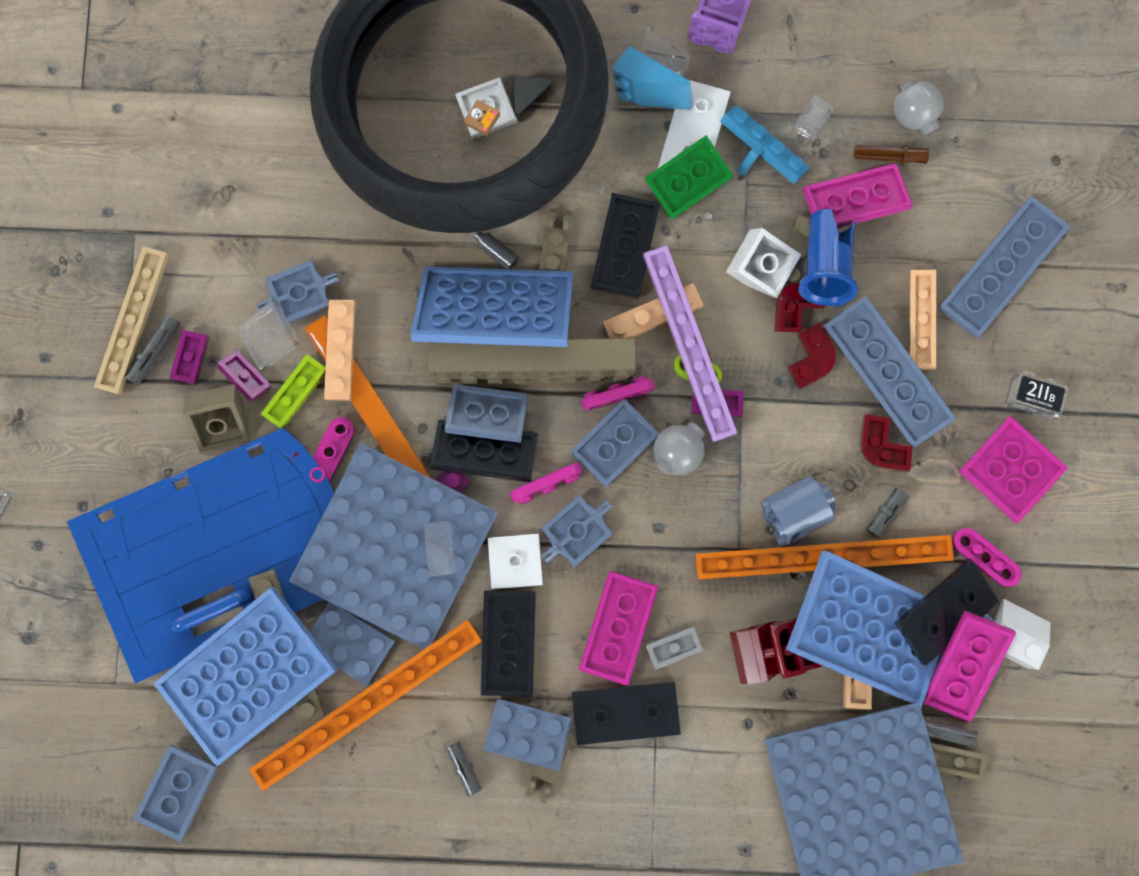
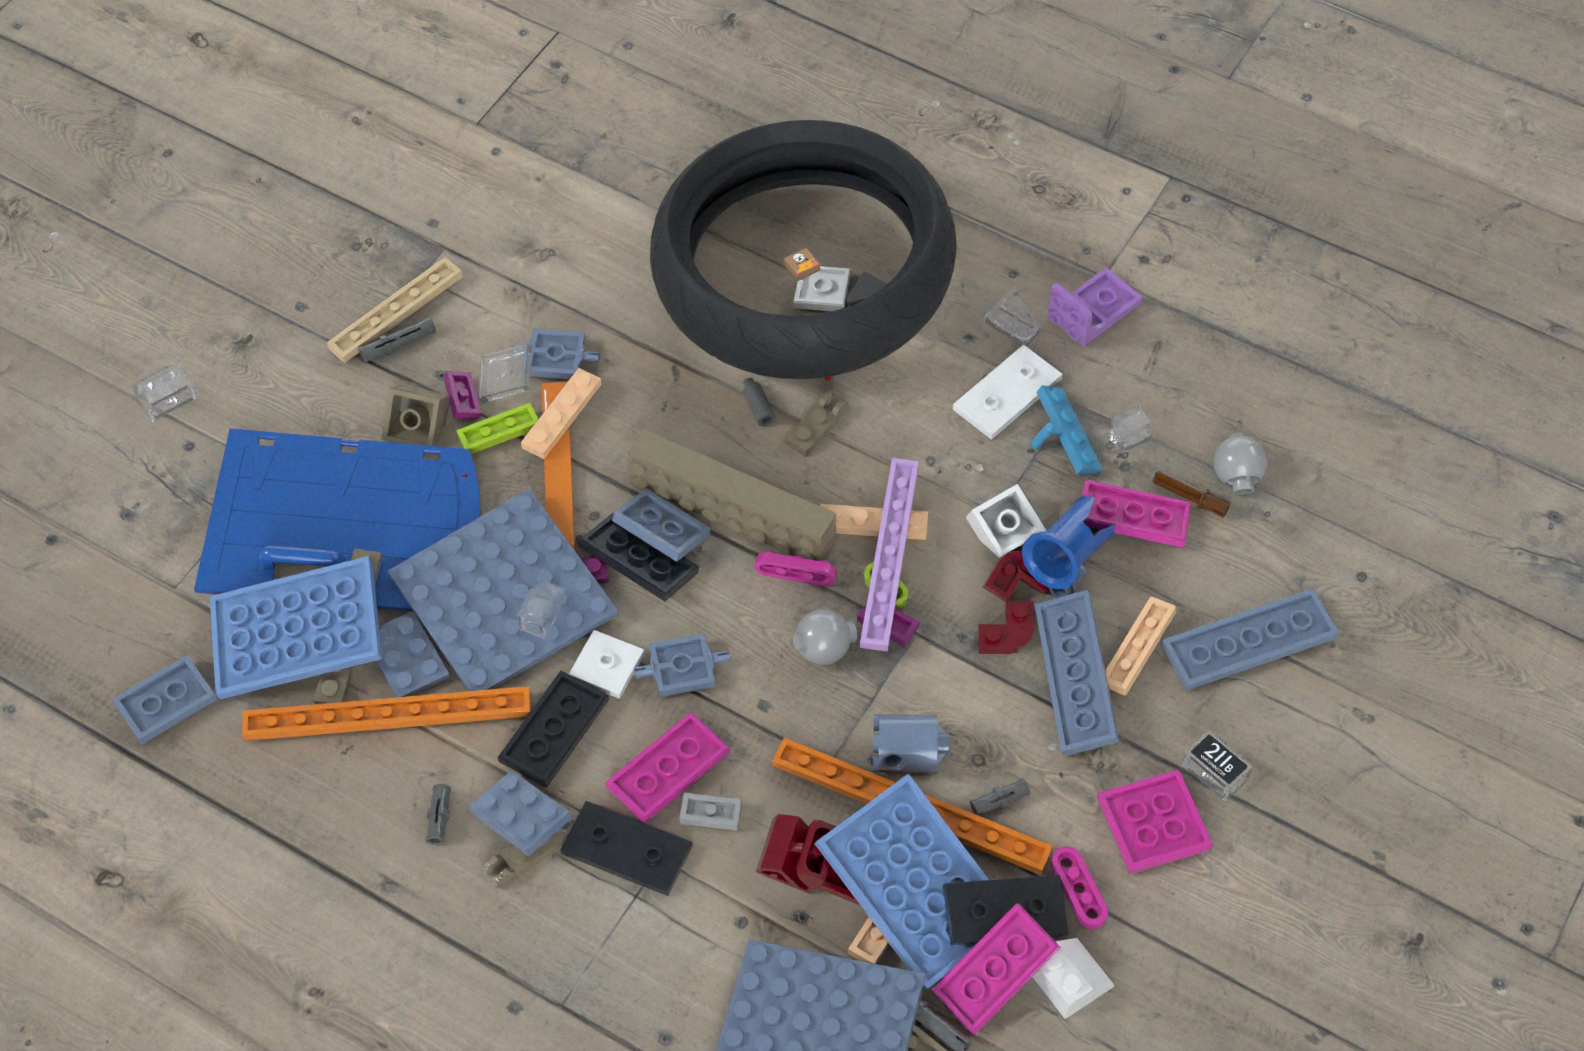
camera: 30 degrees right, 25 degrees down
(189, 357) = (424, 360): magenta plate -> none
(333, 440) = (508, 487): dark pink plate -> none
(493, 306) = (723, 435): medium blue plate -> none
(546, 484) = (679, 609): dark pink plate -> none
(614, 443) = (765, 608): sand blue plate -> none
(624, 240) = (867, 462): black plate -> none
(650, 83) = (984, 327): dark azure slope -> none
(689, 177) = (976, 421): green plate -> none
(877, 449) = (1025, 737): dark red plate -> none

